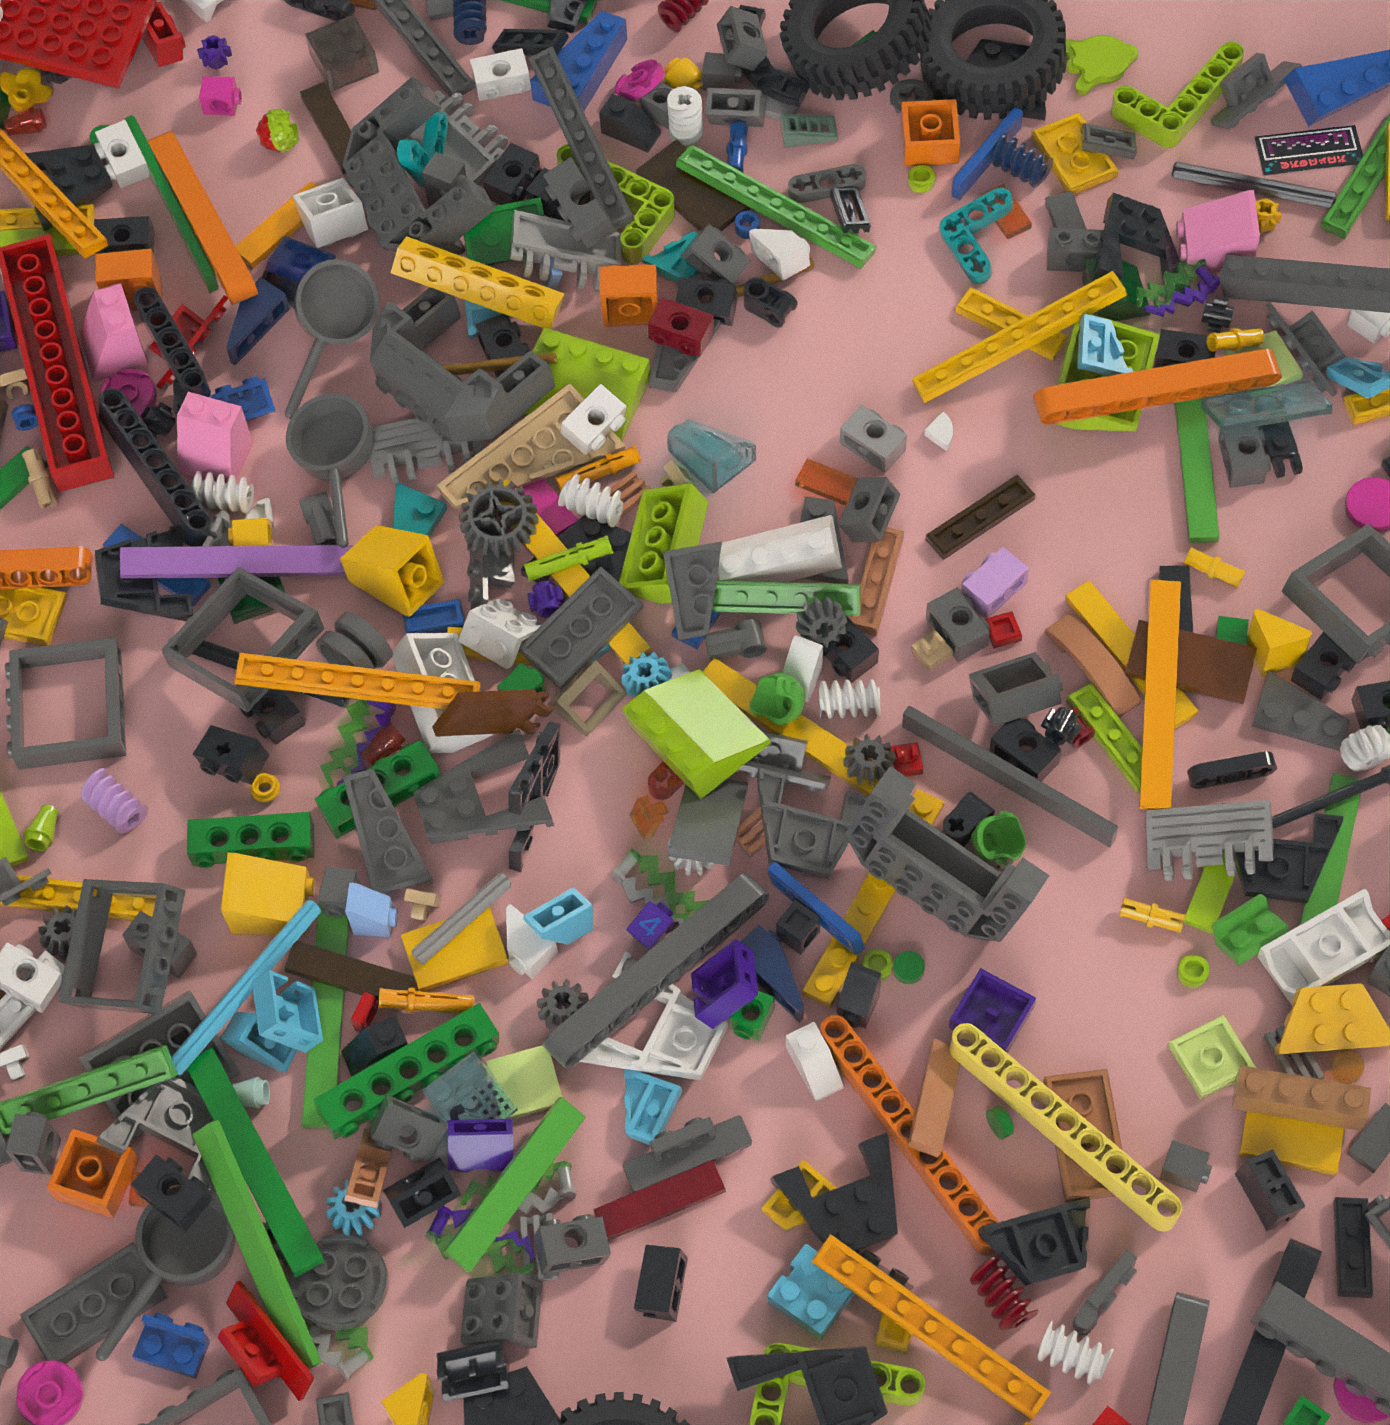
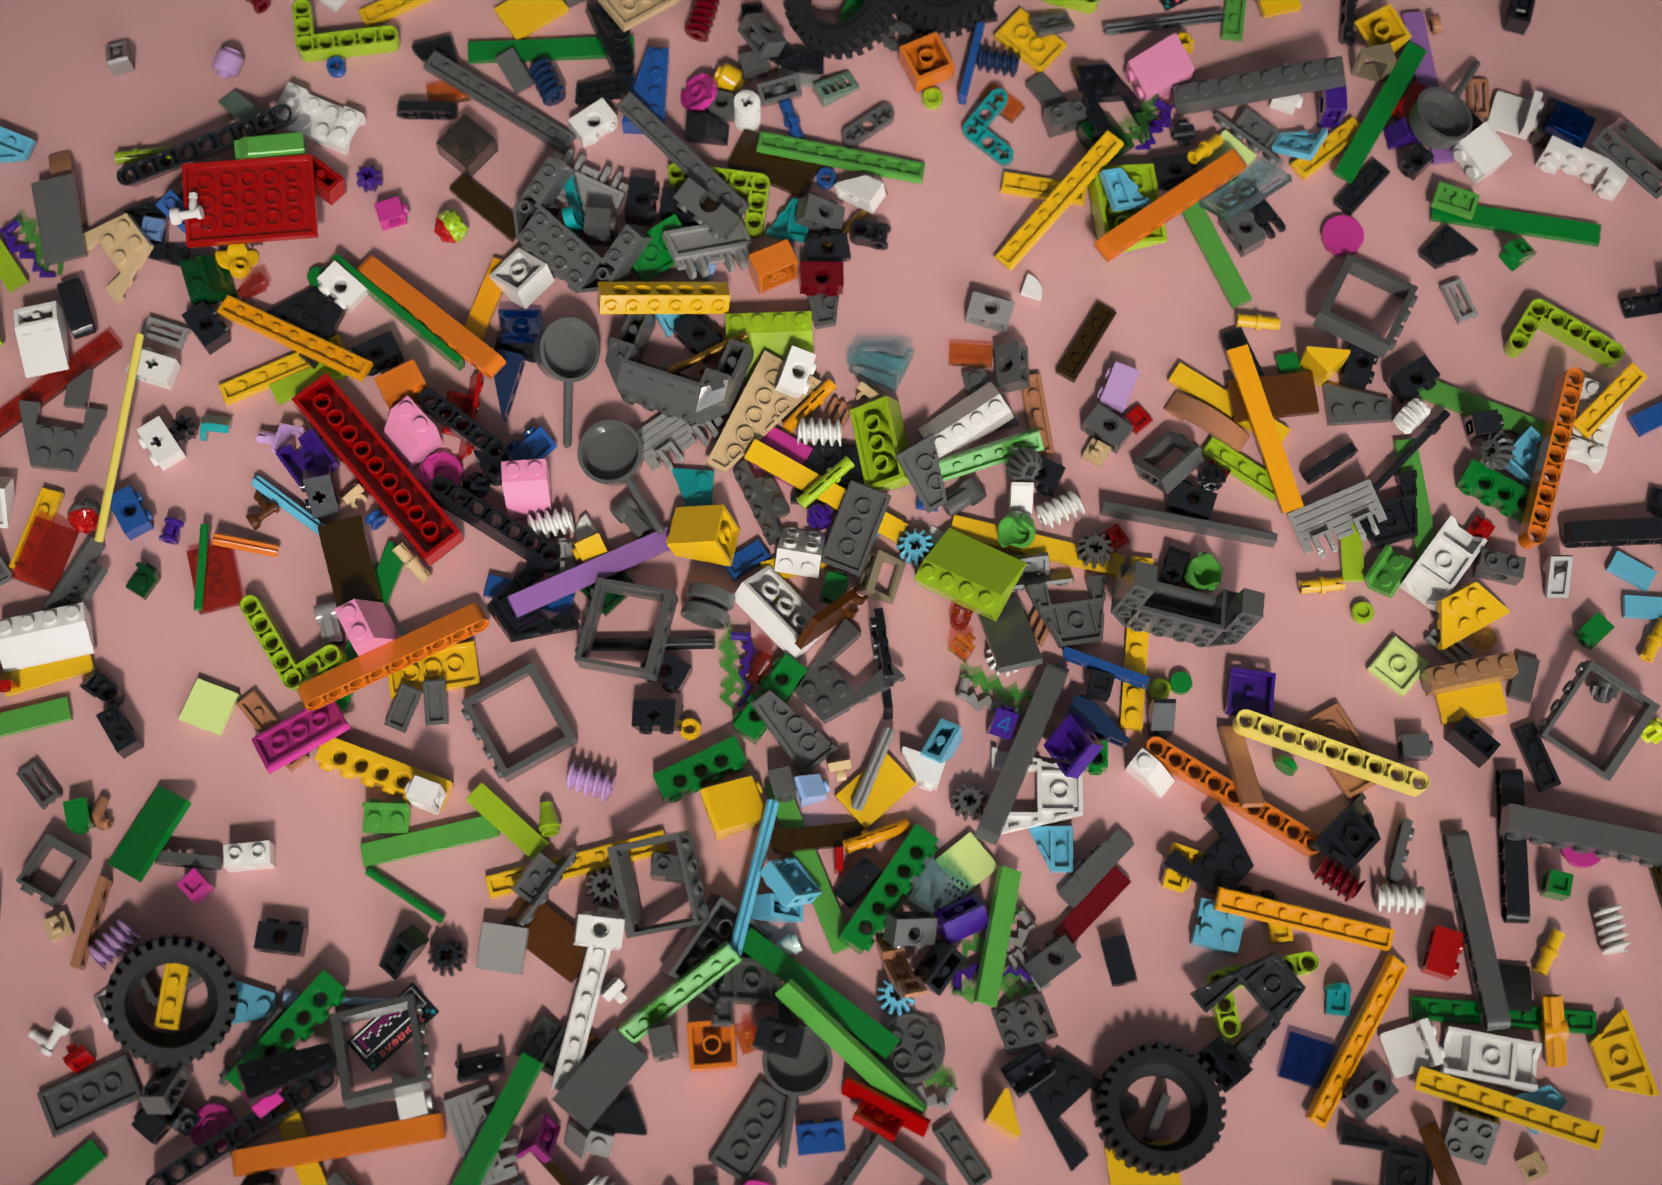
camera: 30 degrees left, 10 degrees up
(349, 681) = (727, 632): light orange tile -> none
(505, 541) = (772, 466): dark grey gear -> none
(852, 223) = (891, 142): black tile -> none

